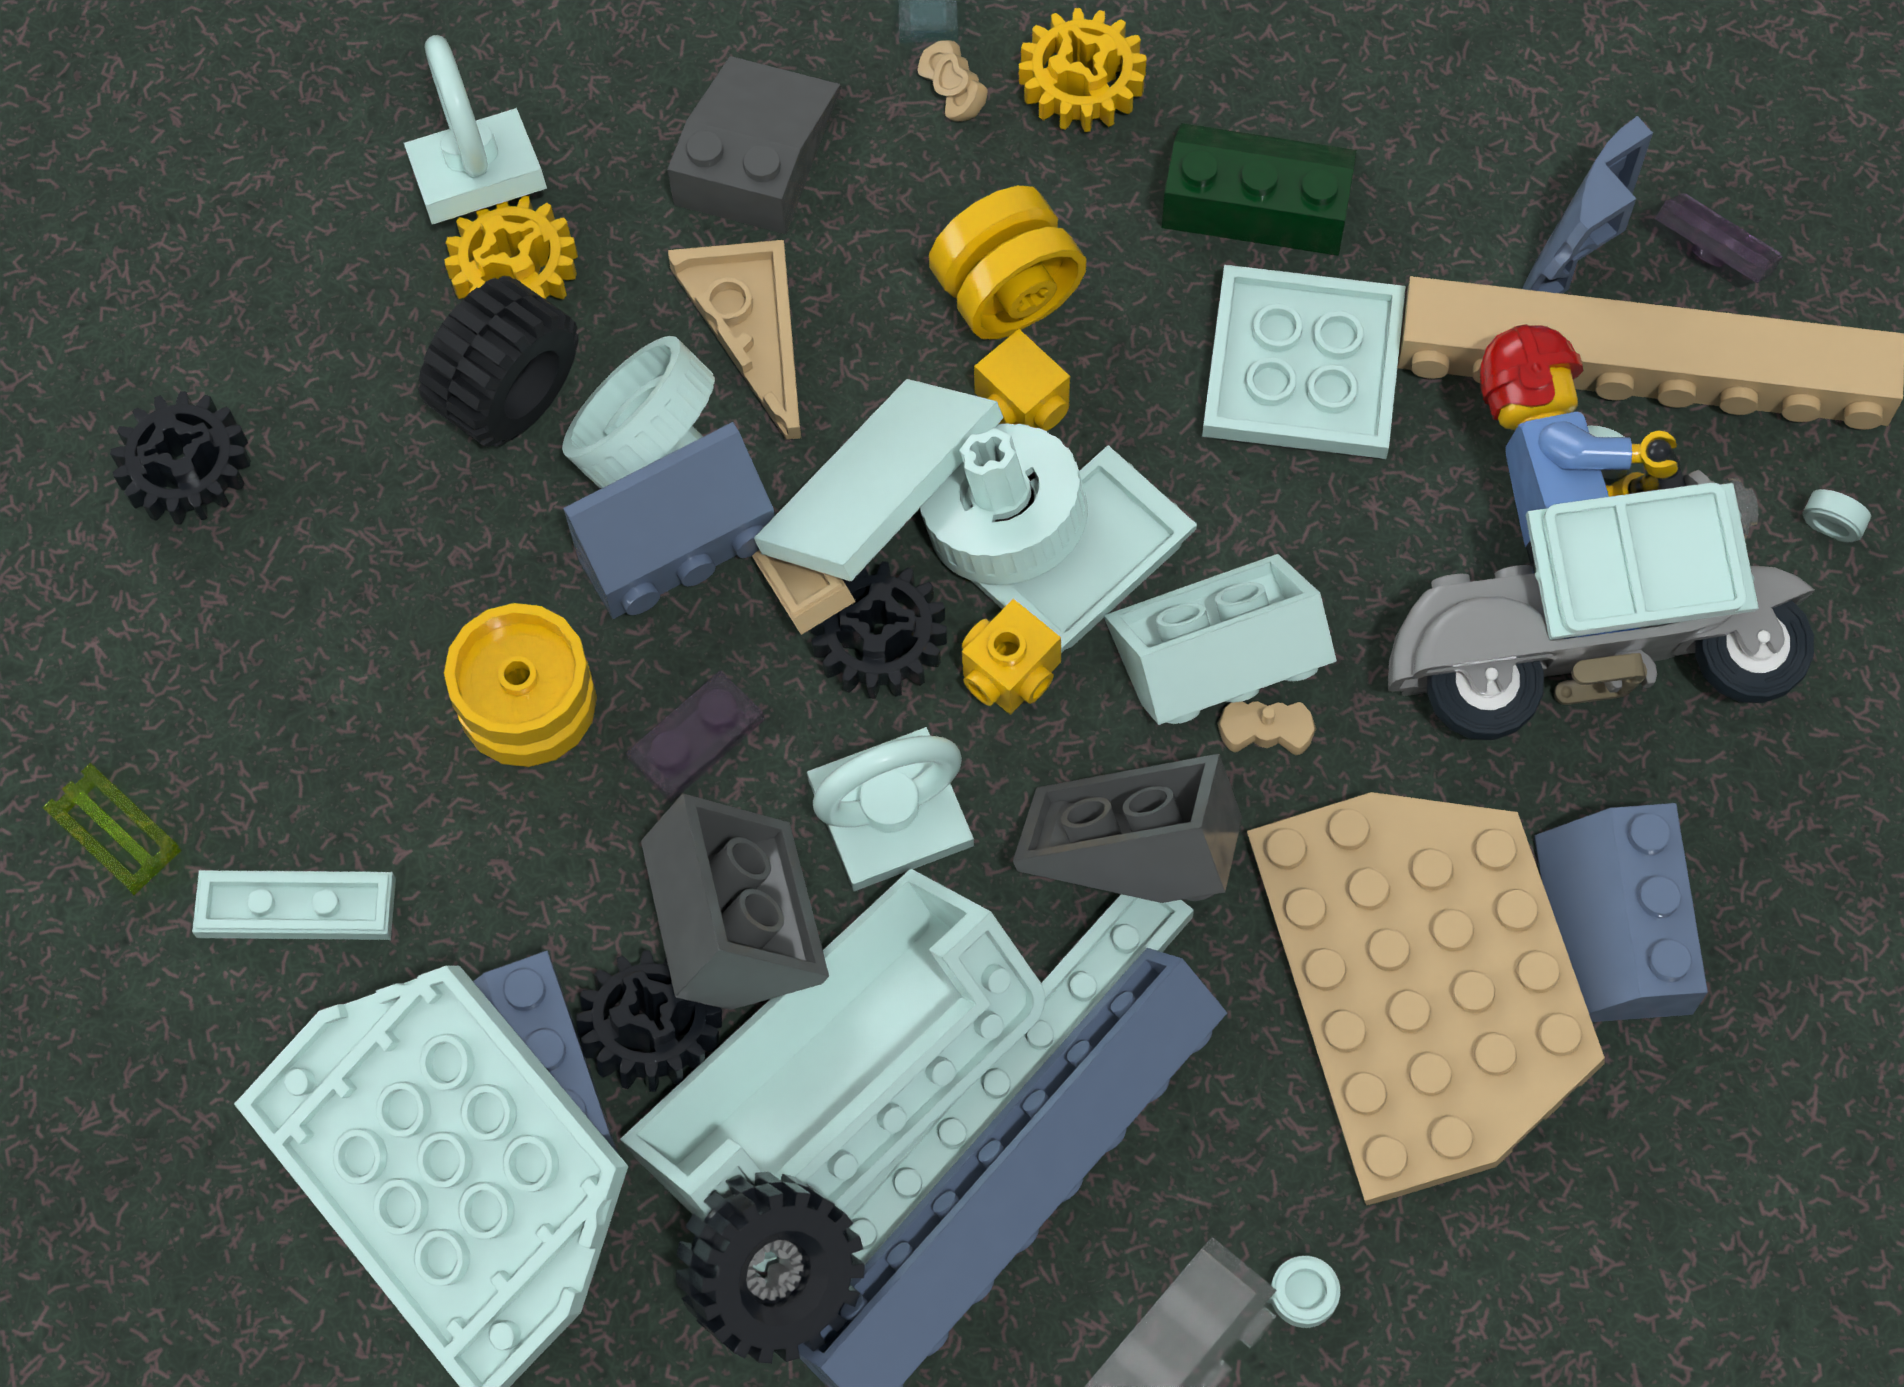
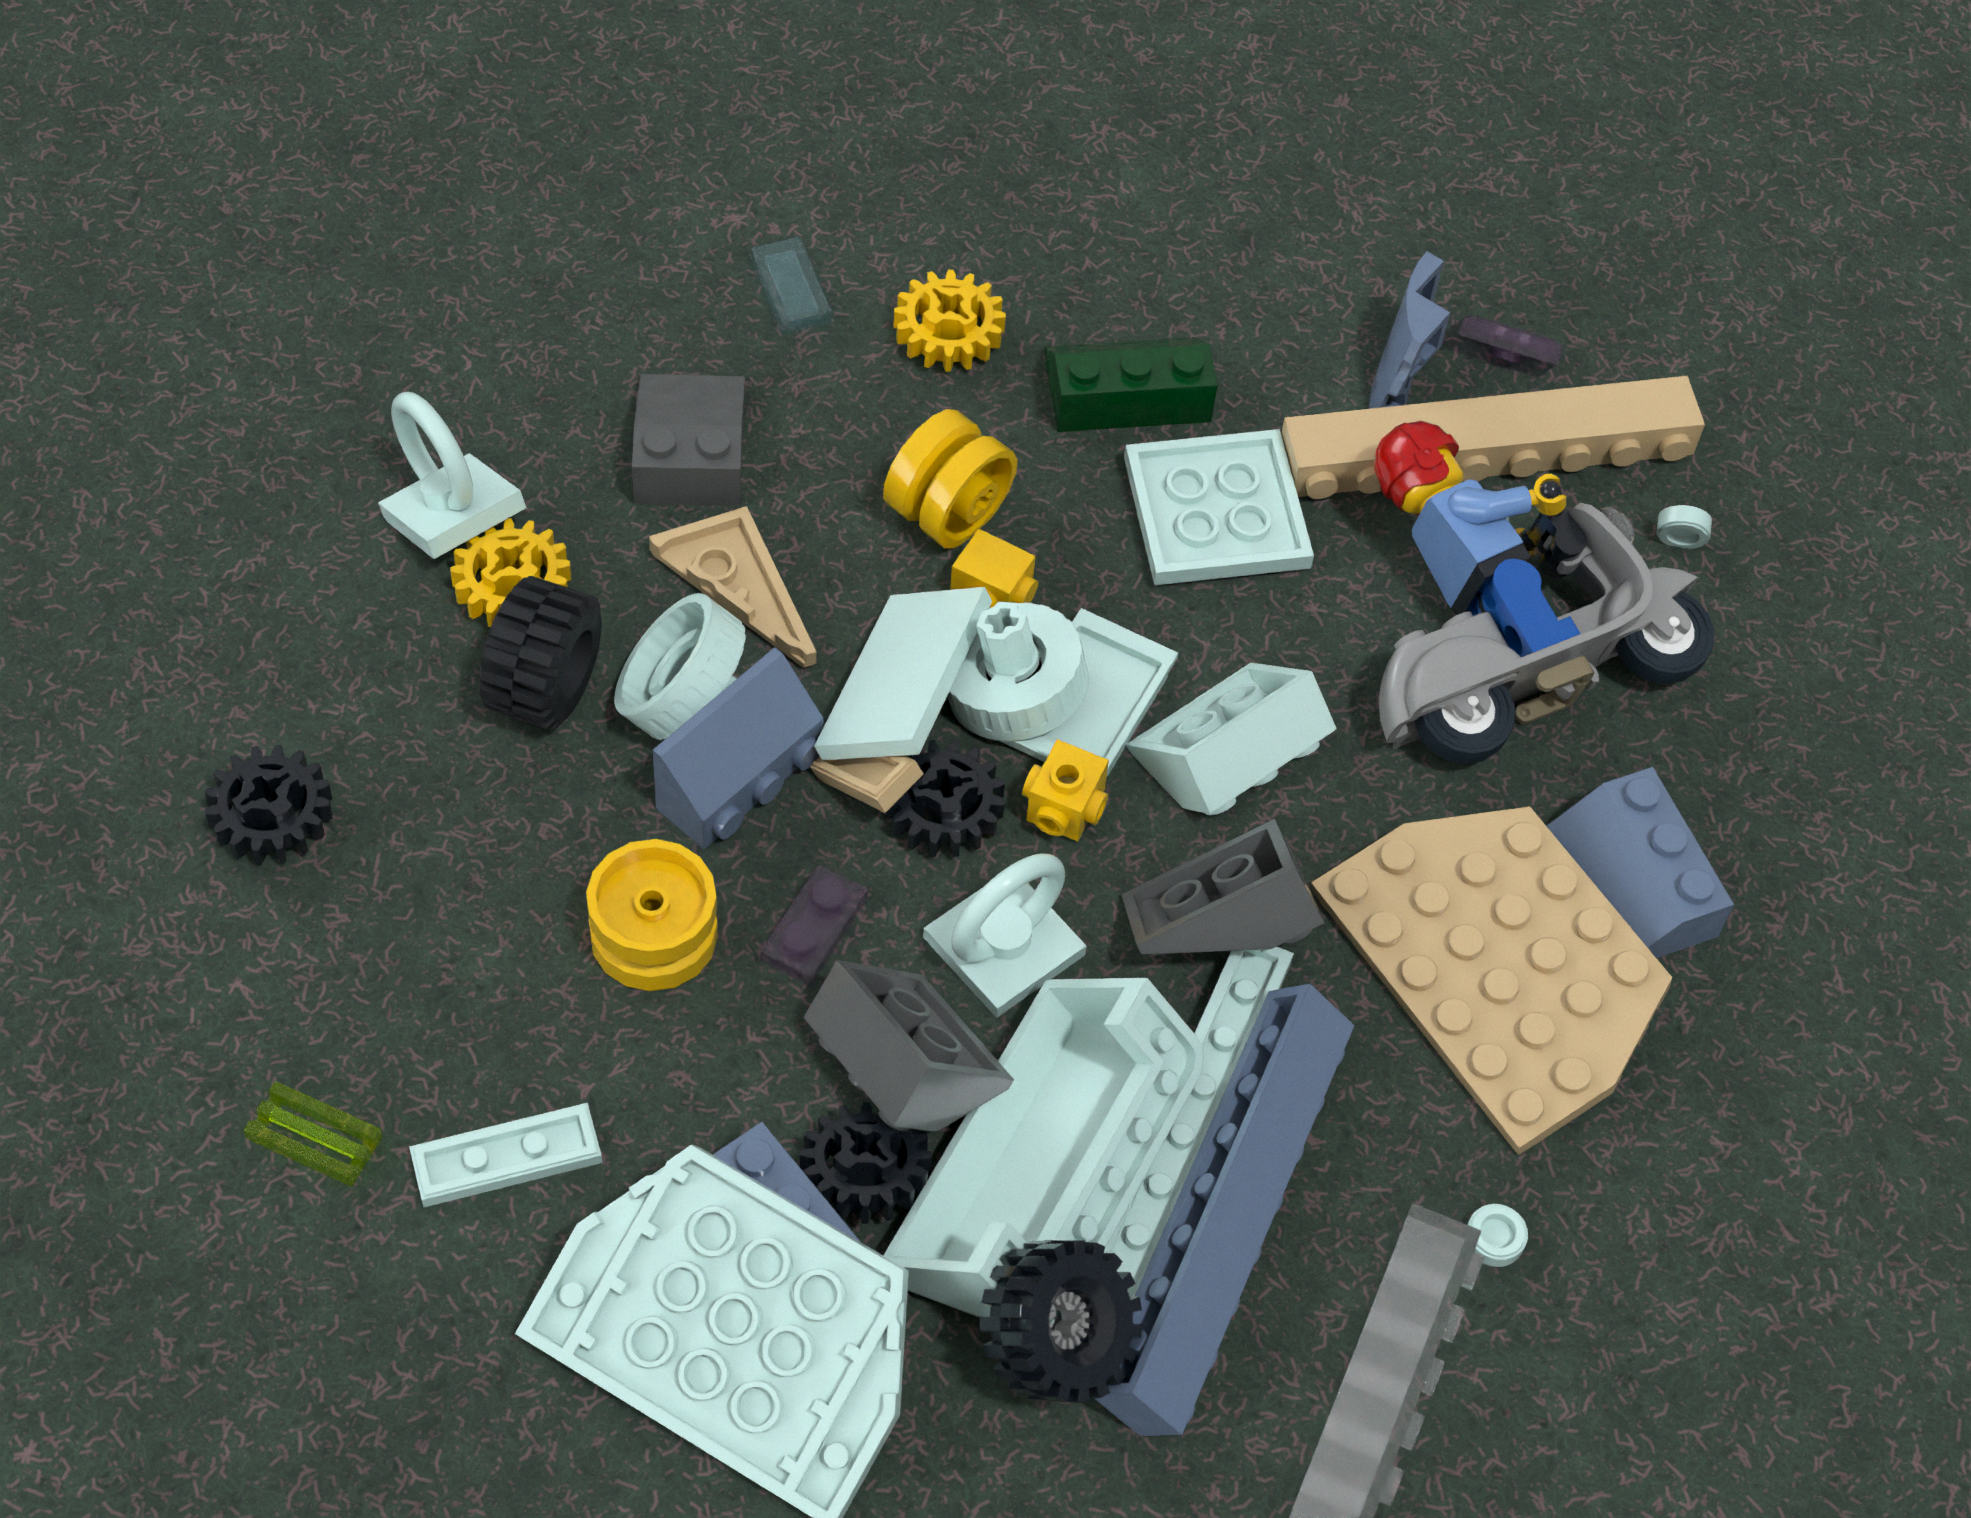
camera: 25 degrees left, 10 degrees down
(953, 79) = (840, 350): tan piece -> none
(1266, 726) = (1294, 797): tan piece -> none
(1641, 560) = (1563, 579): light aqua piece -> none

